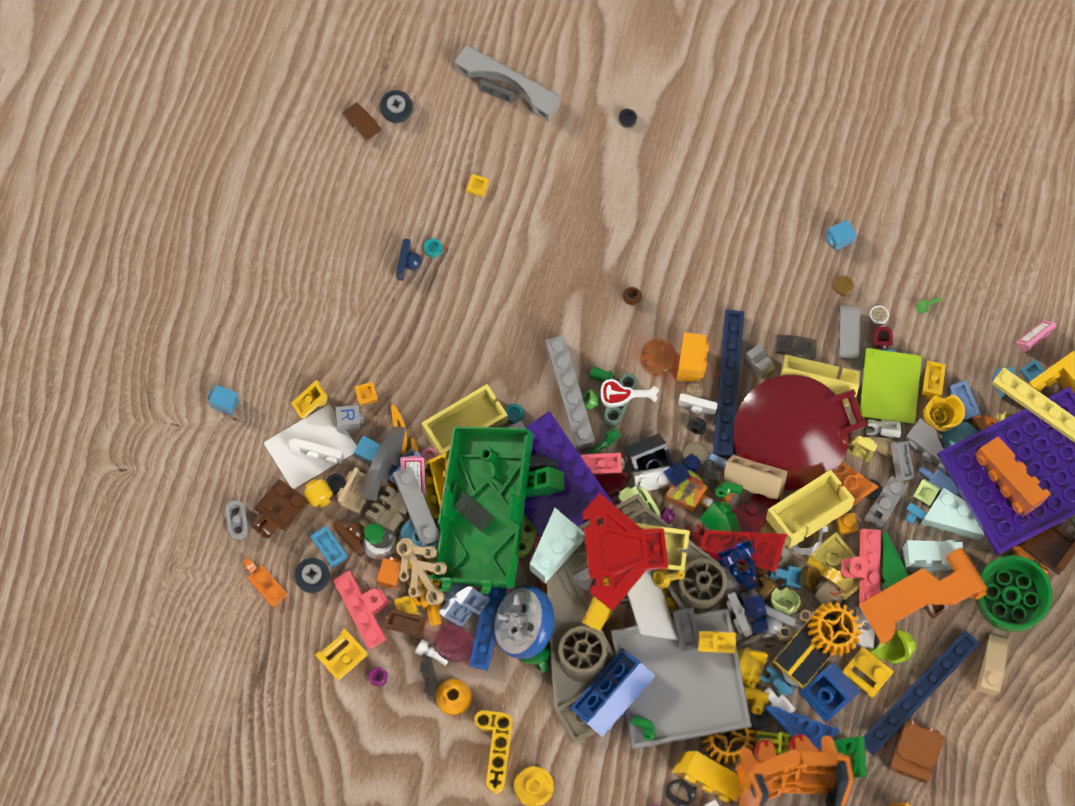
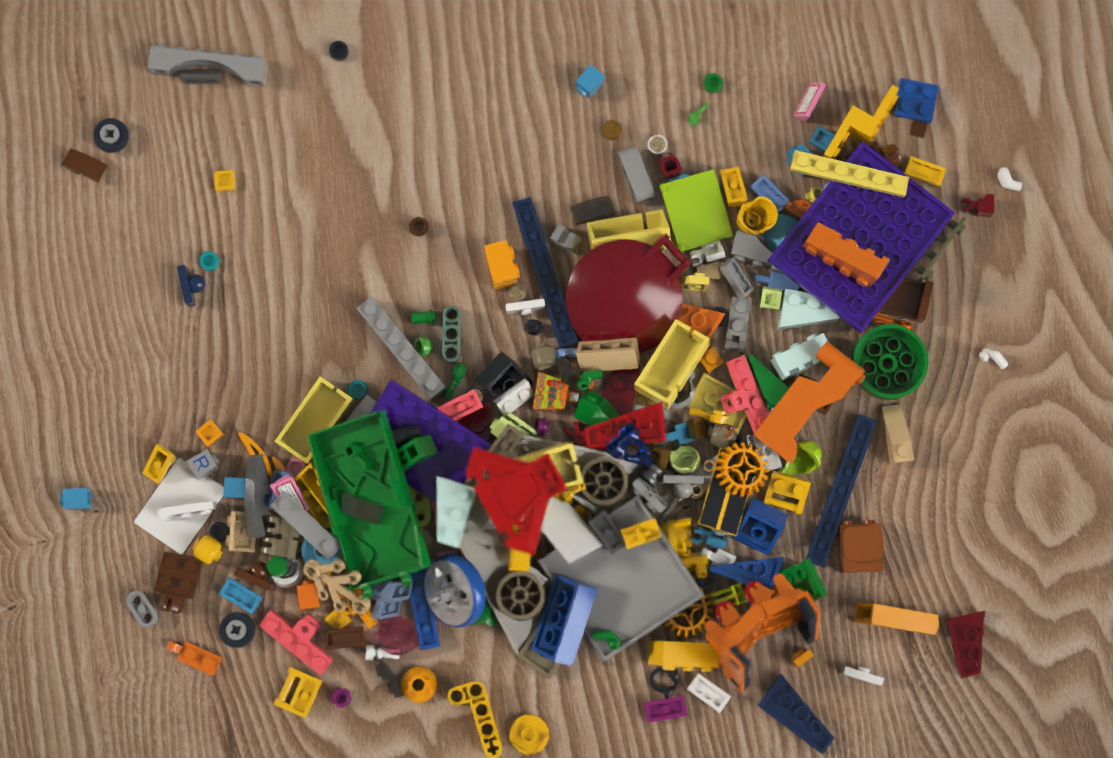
camera: 25 degrees left, 10 degrees up
(616, 395) = (445, 333): white piece -> none
(658, 357) = (468, 276): clear orange head -> none
(678, 473) = (536, 383): clear blue plate -> none
(756, 607) = (662, 483): clear blue plate -> none
(915, 512) = (768, 321): dark azure tile -> none
(953, 283) = (713, 83): none -> green tile

